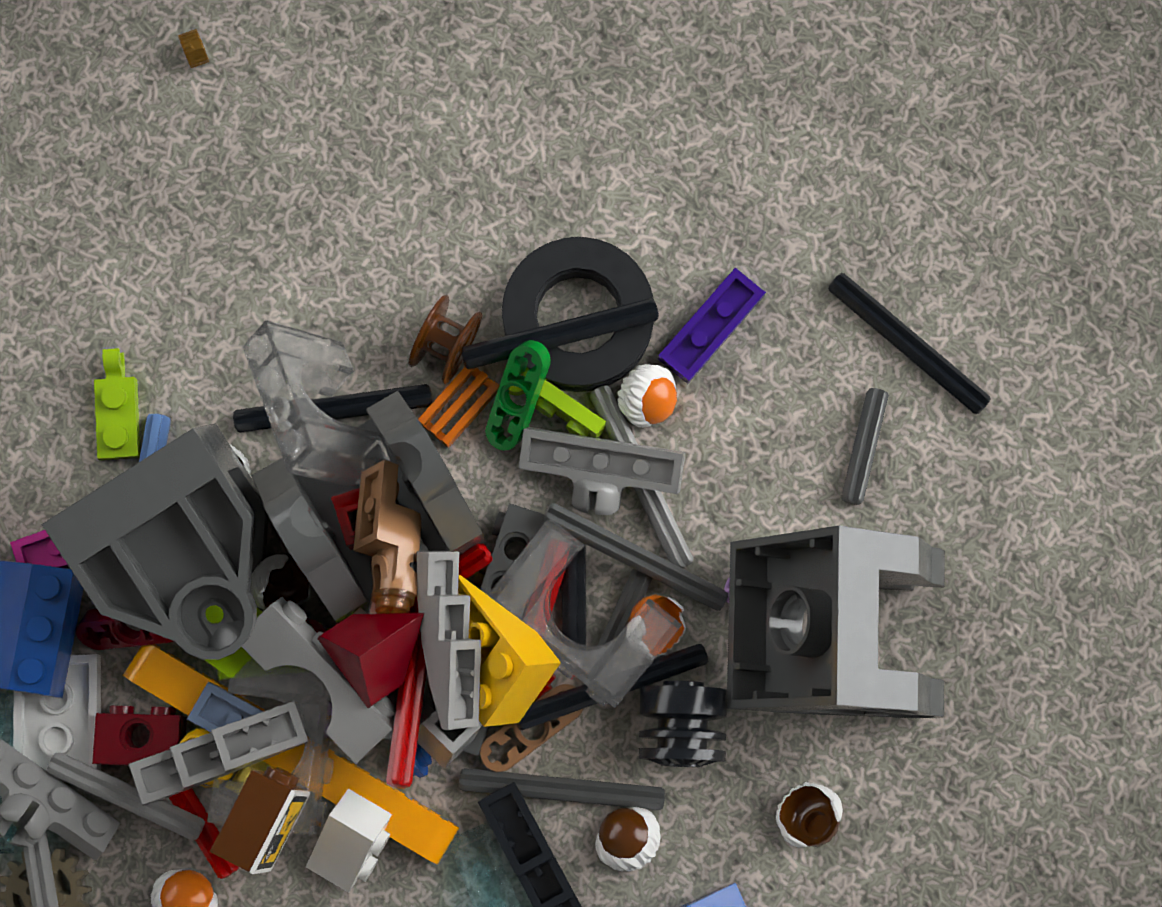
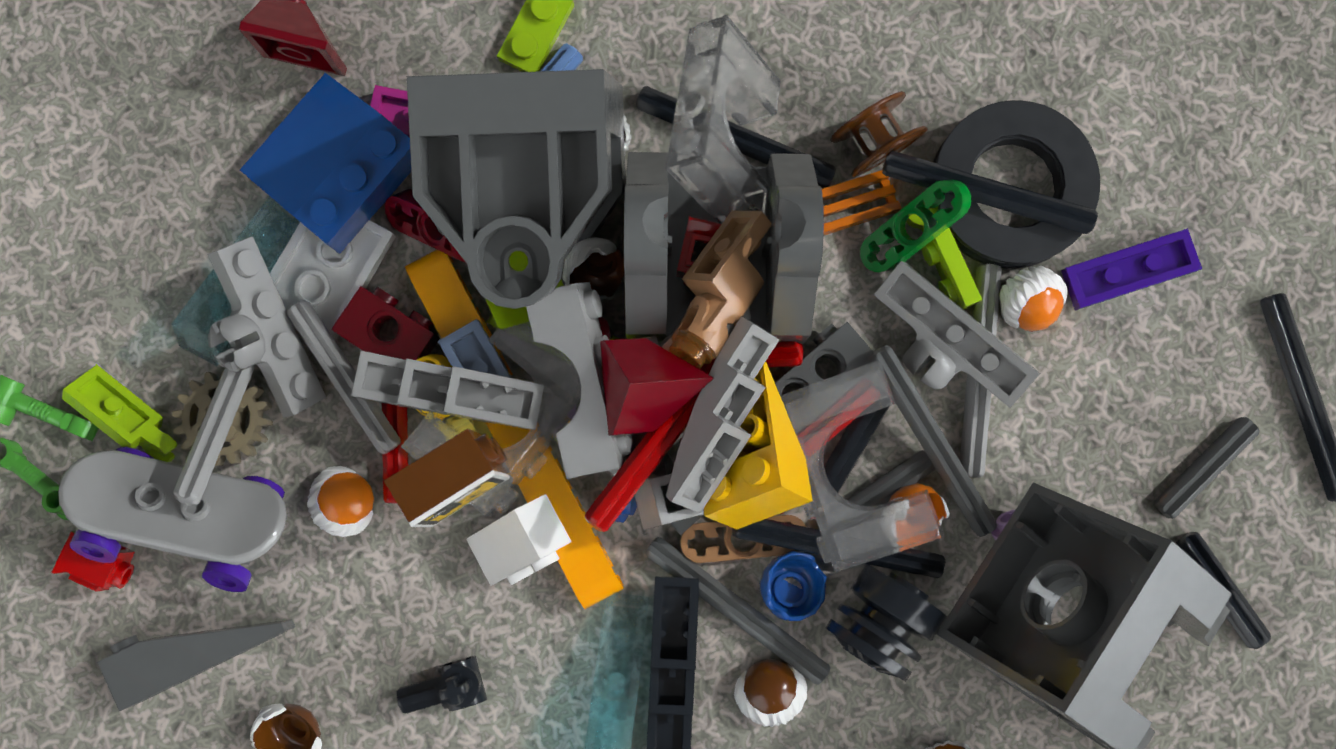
camera: 30 degrees right, 5 degrees up
(594, 756) = (786, 599): none -> blue hair
(936, 535) = (1241, 613): none -> black axle

